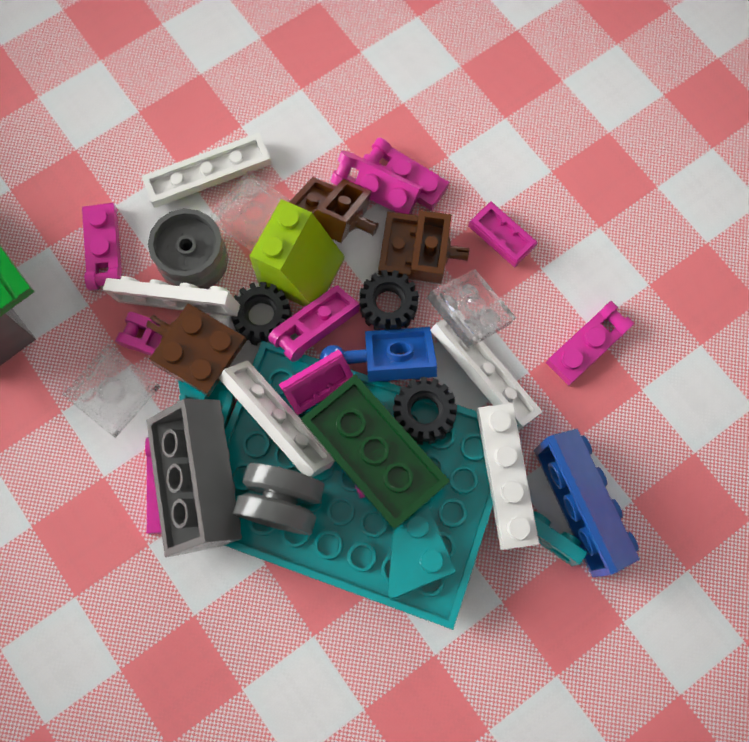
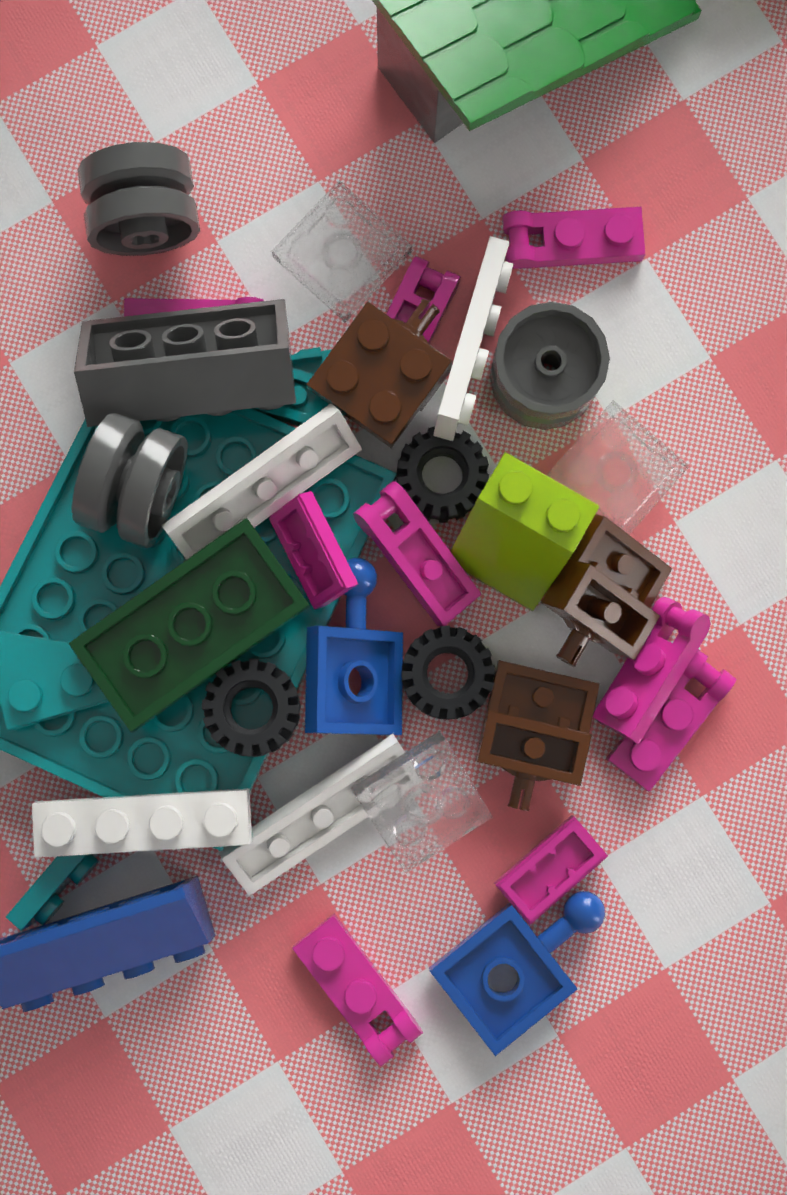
camera: 95 degrees right, 10 degrees up
(76, 522) = (138, 199): none -> dark grey wheel
(206, 170) = (694, 400): white plate -> none
(567, 236) = (540, 980): none -> blue plate

